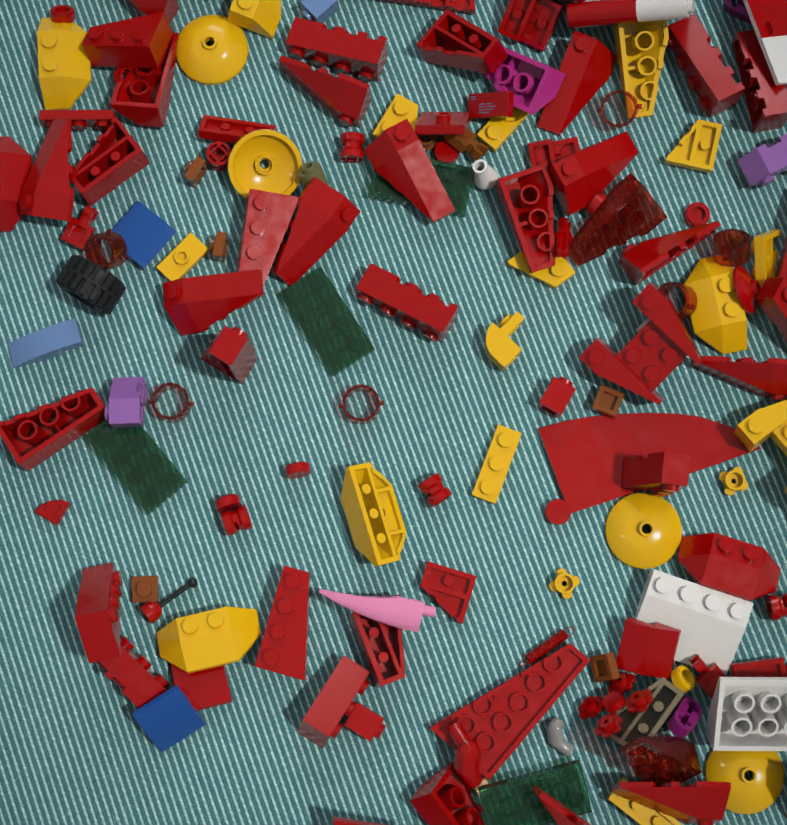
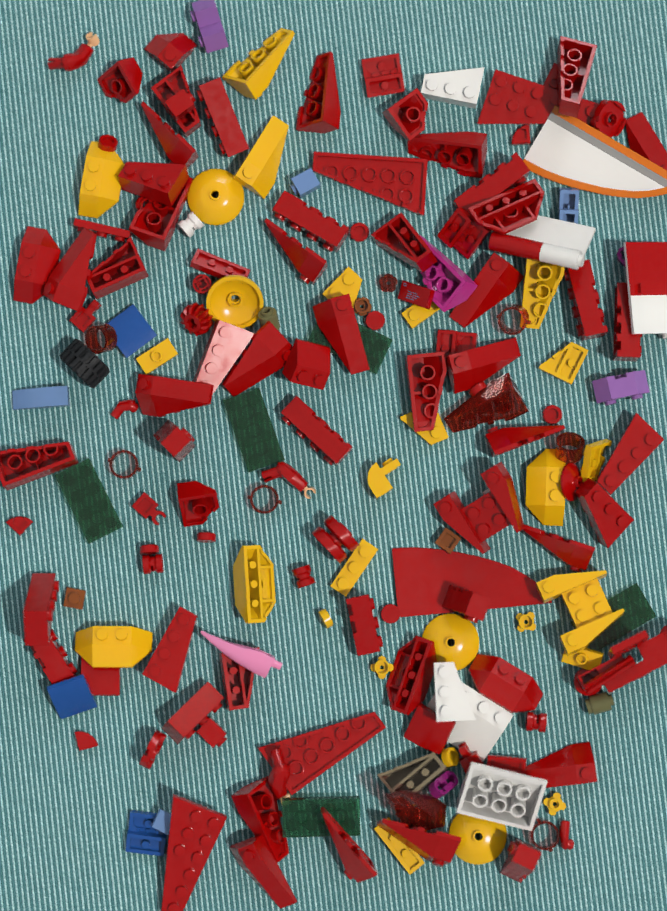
camera: 15 degrees right, 5 degrees up
(127, 402) = (92, 458): medium lavender brick -> none
(154, 329) = (122, 406): none -> red arm
(154, 610) = (77, 615): hinge -> none
(188, 87) = (190, 224): none -> white wheel
(195, 171) = (181, 291): dark orange plate -> none
(200, 773) = (85, 740): none -> red tile
(213, 449) = (147, 507): none -> red plate
(219, 246) = (186, 354): dark orange plate -> none
(221, 198) = (196, 319): none -> red gear
(275, 428) = (196, 502): none -> red slope
(292, 763) = (152, 749): none -> red plate
(352, 147) = (304, 302): red wheel -> none
(376, 219) = (308, 364): none -> red slope
(384, 364) = (289, 474): none -> red arm
(400, 50) = (359, 232): none -> red tile
(443, 123) = (376, 300): red plate -> none
(449, 588) = (296, 651): red wing -> none
(451, 96) = (388, 278): none -> clear red plate
(464, 431) = (338, 536): none -> red wheel
(468, 143) = (390, 314): dark orange plate -> none
(476, 537) = (325, 618): none -> yellow tile
(484, 175) = (398, 347): white cone -> none
(527, 532) = (364, 624): none -> red wedge
(546, 646) = (357, 710): red piece -> none
(555, 737) = (347, 776): light grey arm -> none
(557, 396) = (411, 528): red brick -> none
(562, 237) = (445, 409): red axle -> none
(604, 667) = (395, 735): dark orange plate -> none
(606, 583) = (411, 675): none -> red wedge
(613, 702) = (393, 761): red plant -> none
(666, 594) = (450, 696): none -> white wedge
(691, 298) = (527, 476): clear red piece -> none

